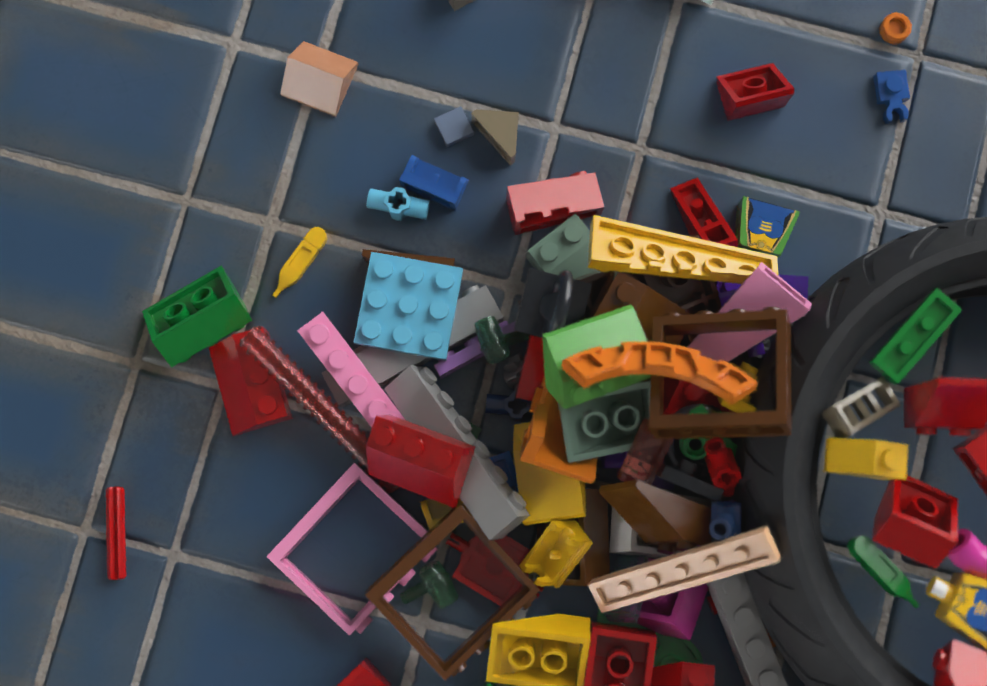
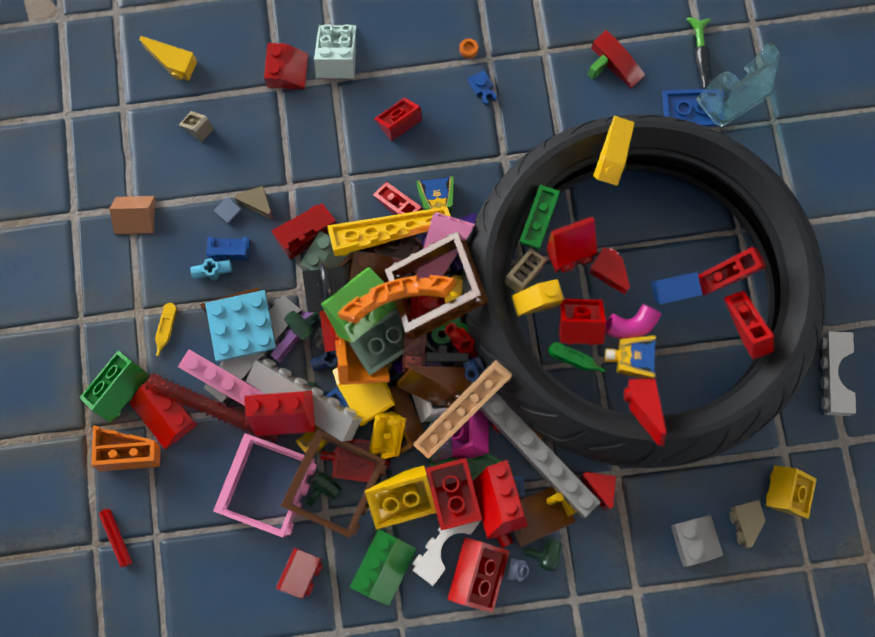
camera: 15 degrees left, 5 degrees down
(172, 416) = (122, 451): none -> orange wedge

